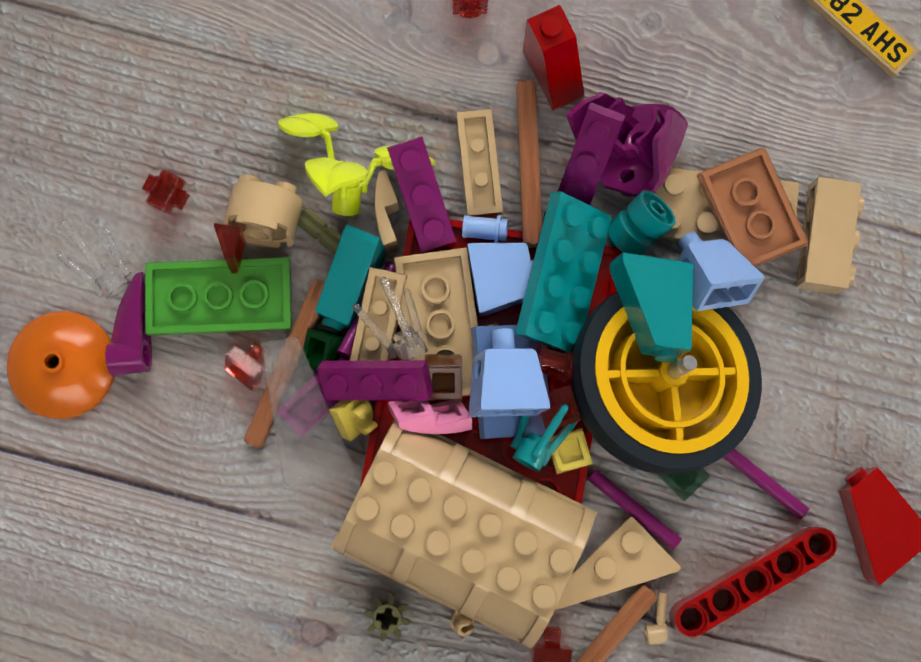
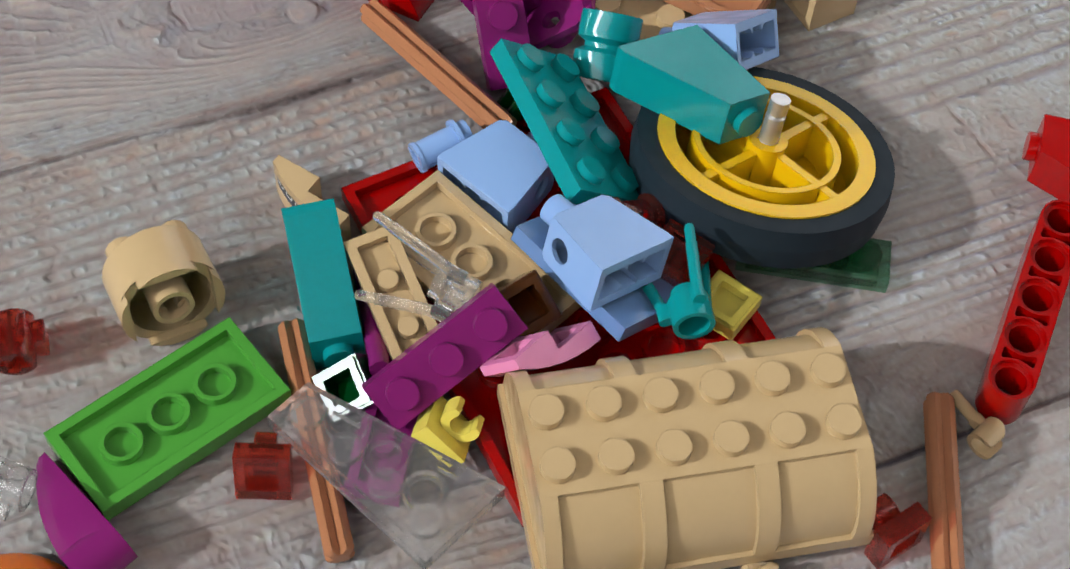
camera: 40 degrees left, 25 degrees down
(232, 245) = (143, 336): clear red slope -> none
(318, 230) = (263, 276): olive piece -> none
(332, 175) = (246, 207): neon yellow plant -> none
(421, 194) = (341, 147): magenta plate -> none
(479, 163) = (376, 100): tan plate -> none
(621, 561) = (890, 381): tan wing -> none
(634, 509) = (849, 329): magenta bar -> none
(767, 483) = (952, 215): magenta bar -> none

